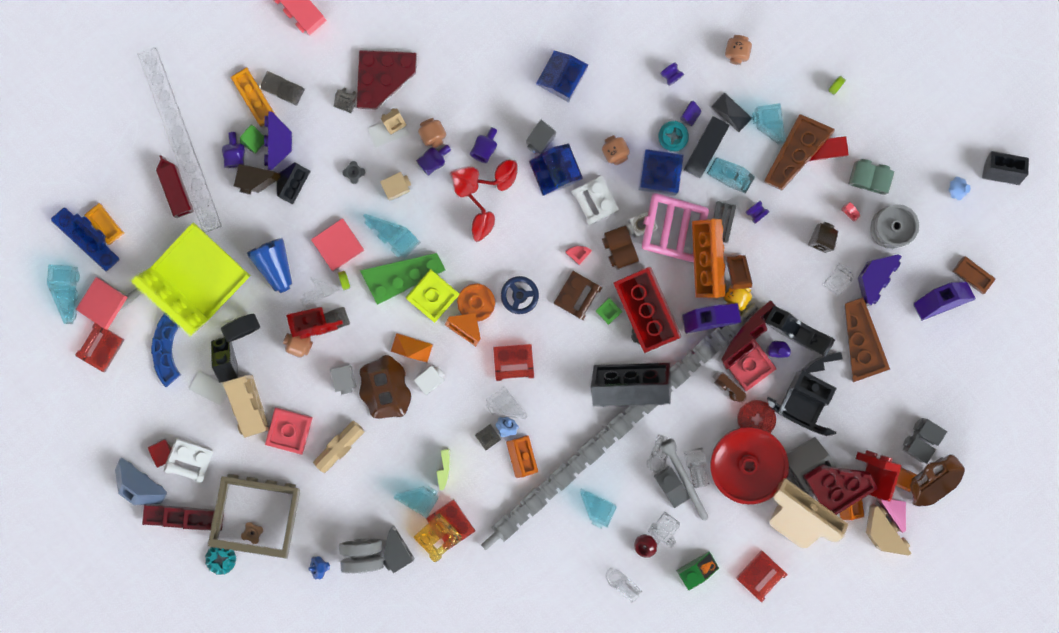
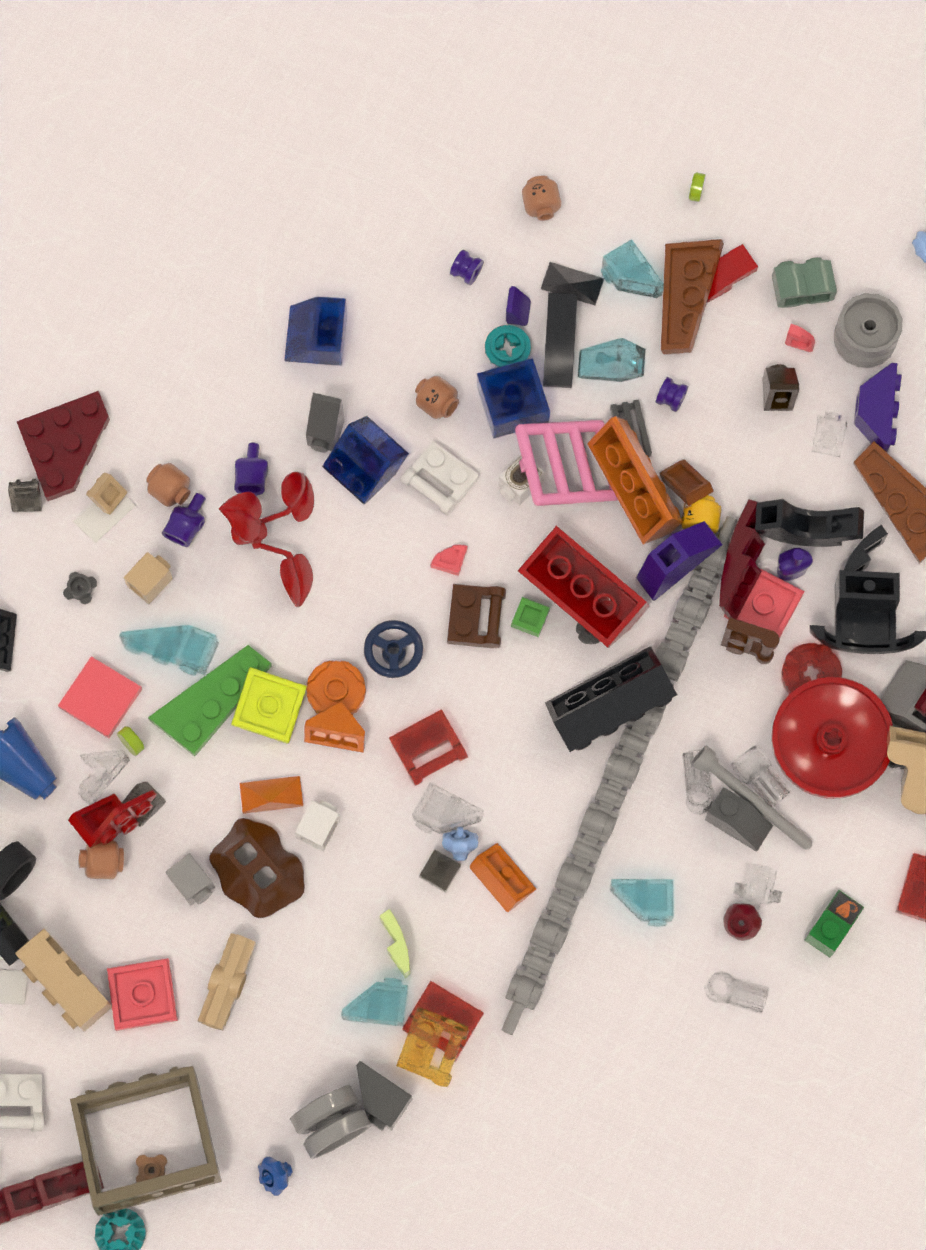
camera: 20 degrees left, 15 degrees down
(620, 247) = (505, 523): reddish brown brick -> none

